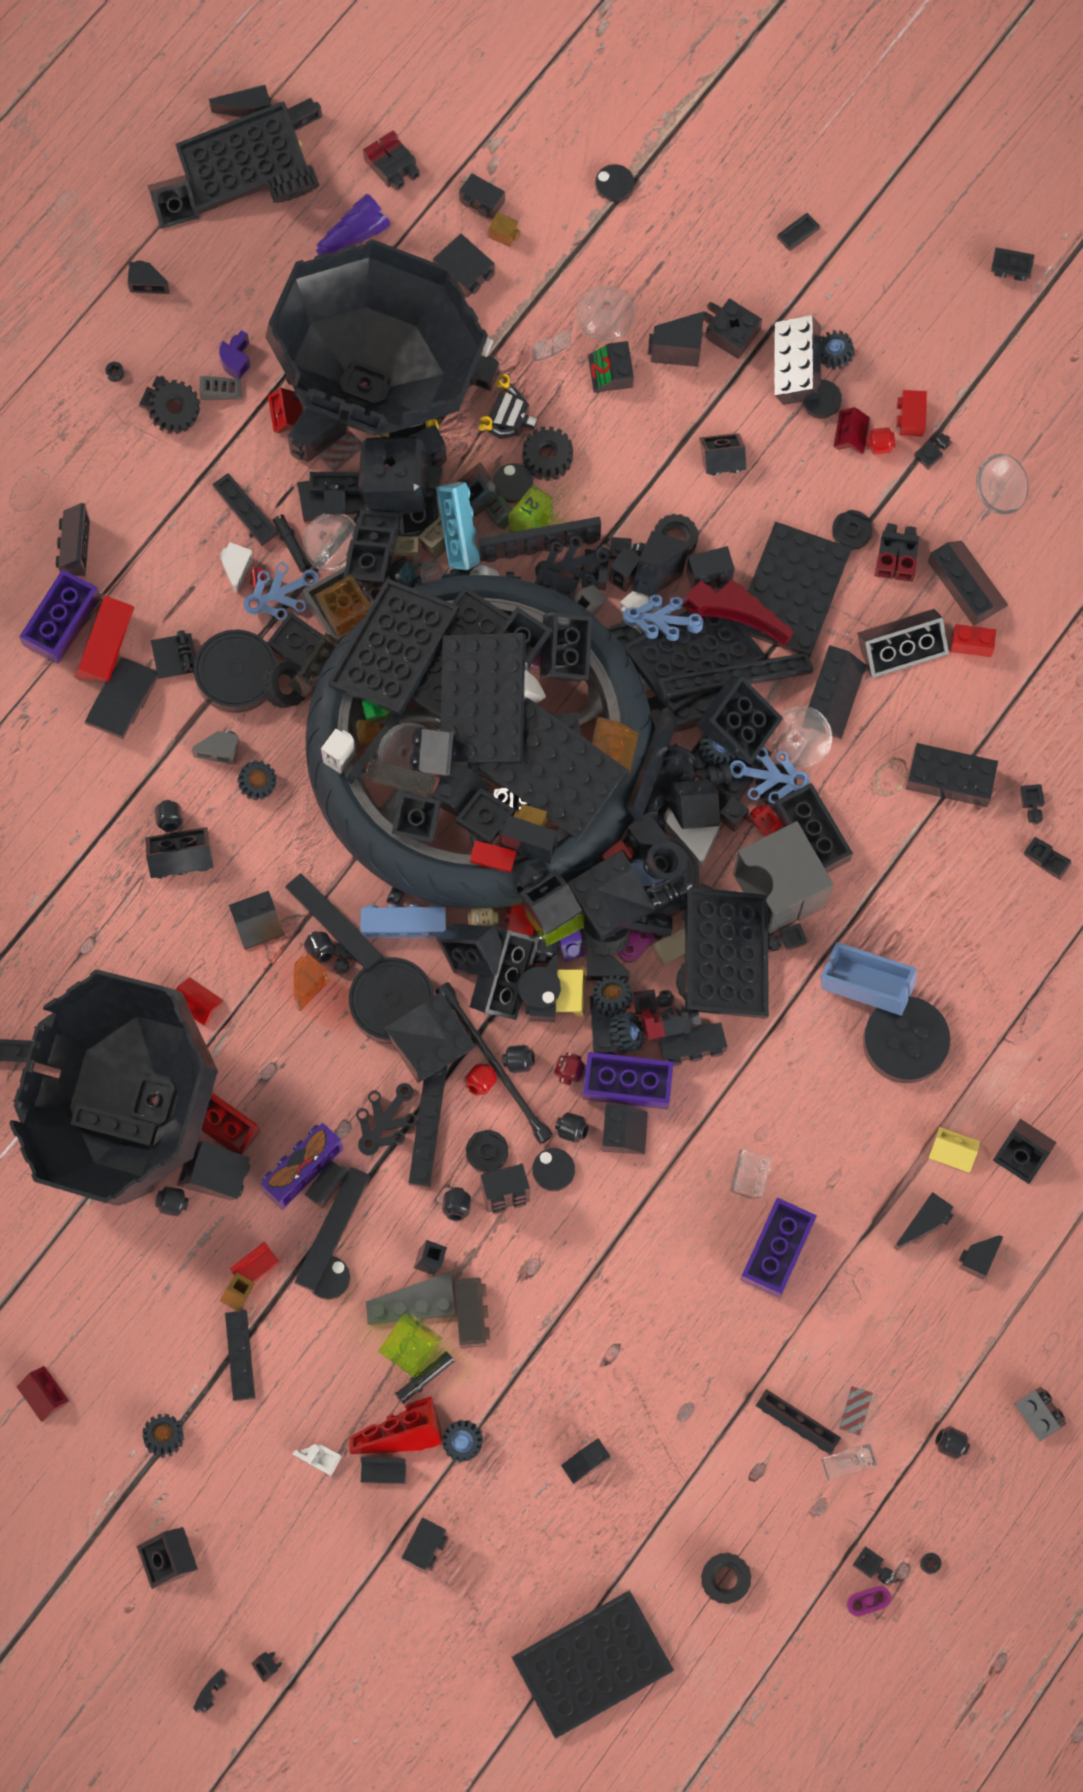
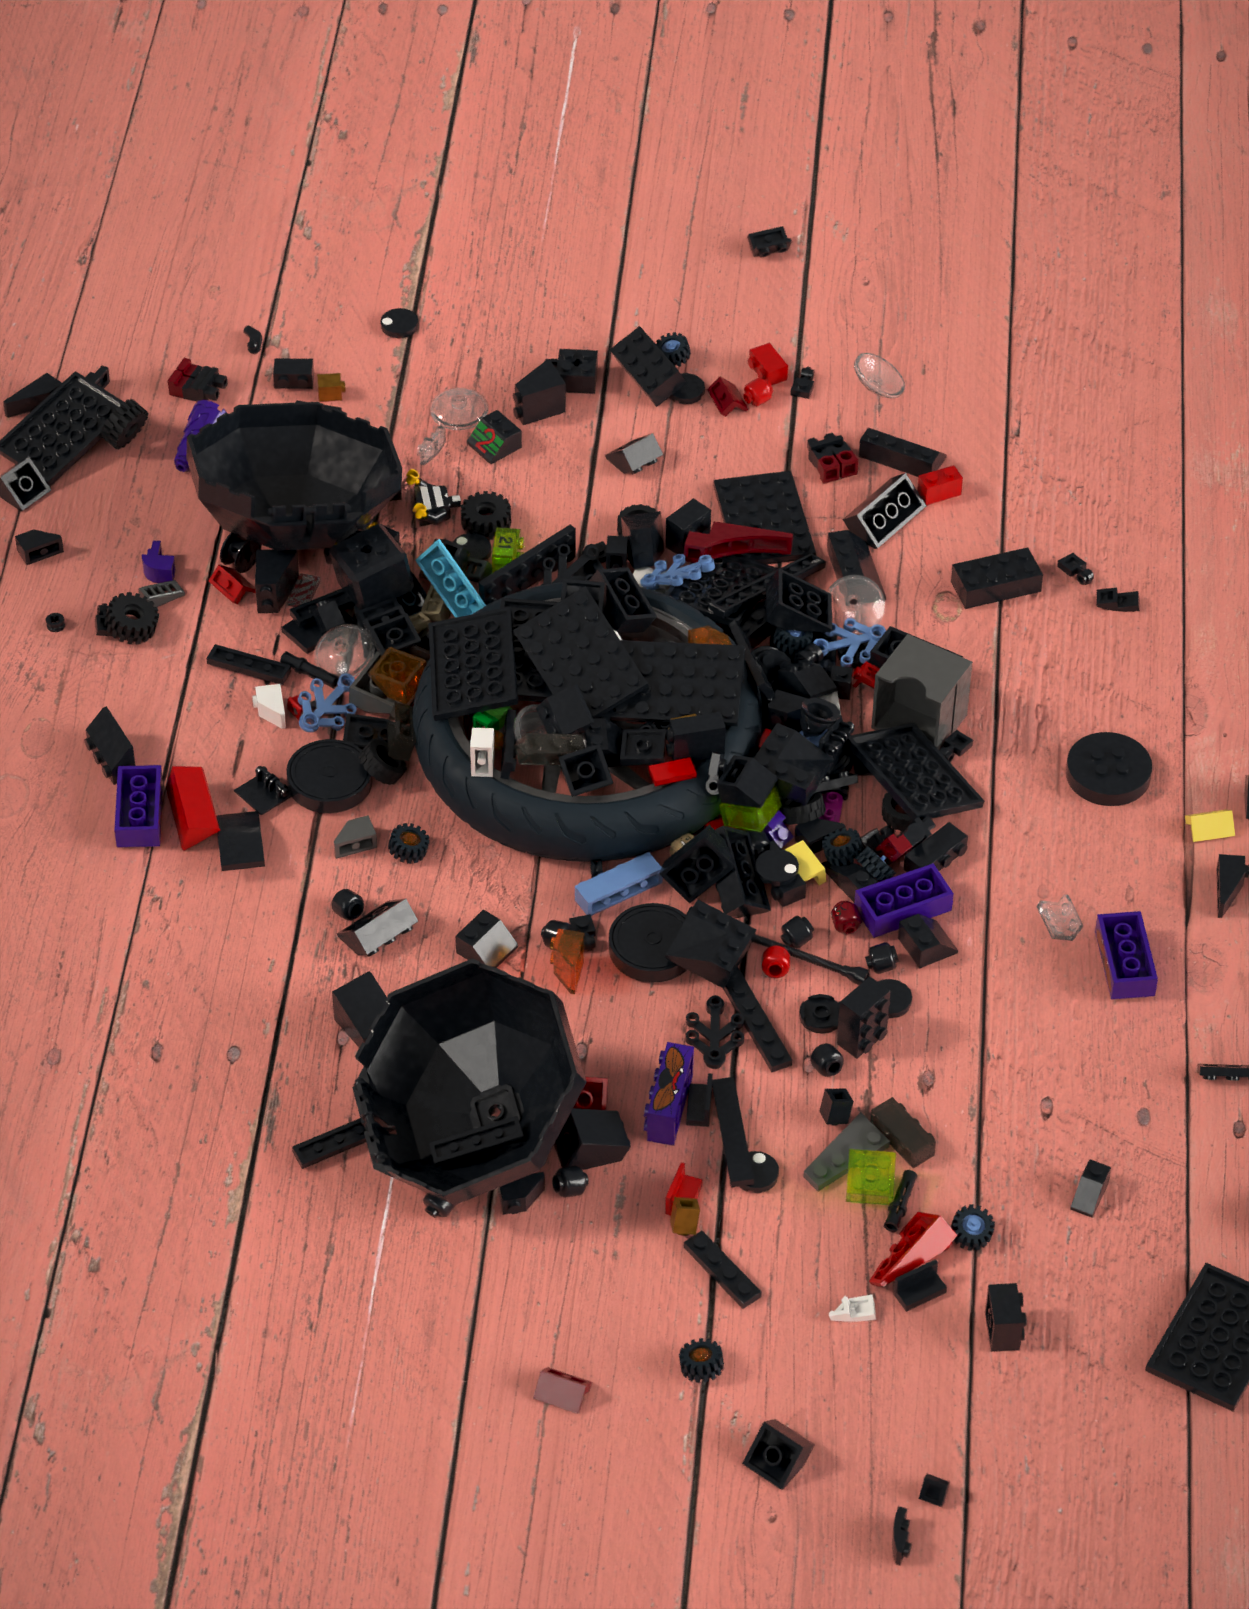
camera: 30 degrees left, 25 degrees down
(111, 940) = (358, 1005): none -> black slope
(334, 922) = (558, 909): black tile -> none
(474, 137) = (255, 342): none -> black arm
(670, 947) = (863, 793): dark tan hinge -> none
(798, 231) = (578, 293): black tile -> none
(852, 529) = (779, 459): black tile -> none
(869, 978) = (1046, 733): medium blue piece -> none

